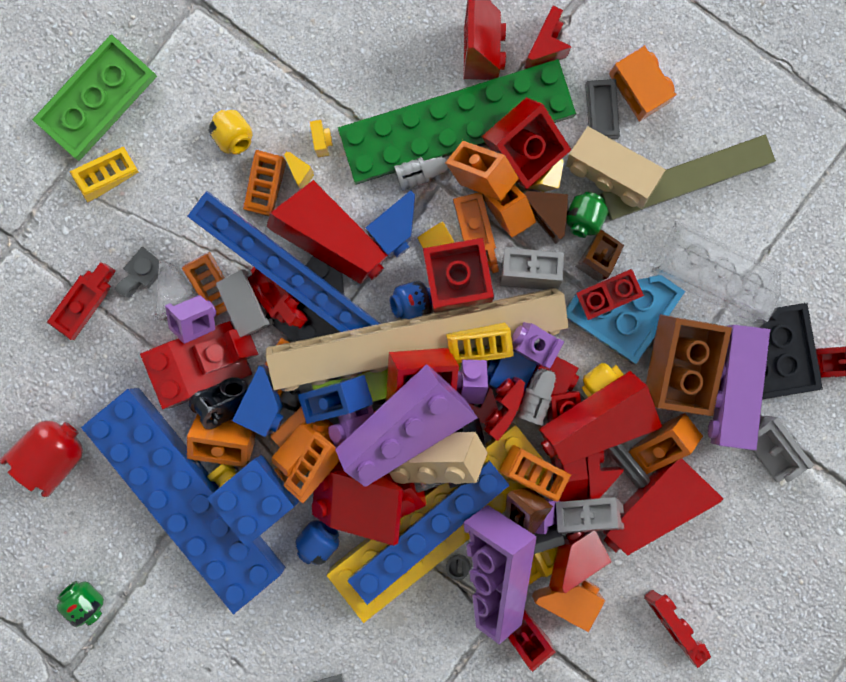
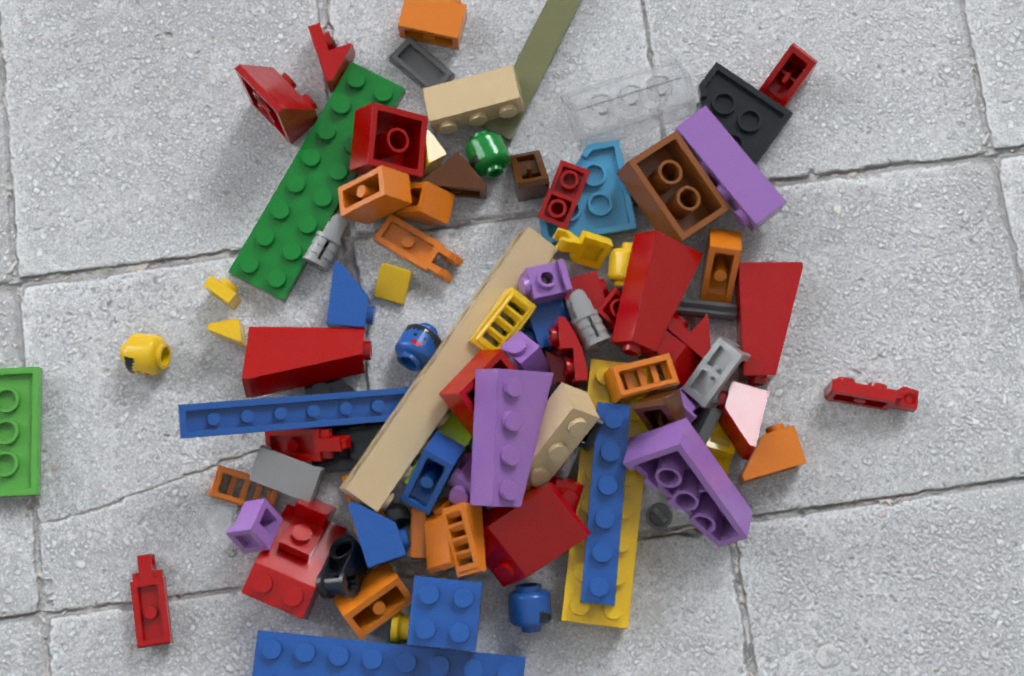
camera: 45 degrees left, 10 degrees down
(89, 169) = (81, 489): yellow slope -> none
(142, 269) = (176, 531): dark grey plate -> none
(254, 181) = (198, 345): orange slope -> none
(458, 275) = (434, 289): red brick -> none
(531, 643) = (772, 516): red slope -> none
(532, 269) = (486, 233): light grey hinge -> none
(587, 346) = (586, 250): none -> yellow plate
(780, 451) = (808, 188): light grey hinge -> none

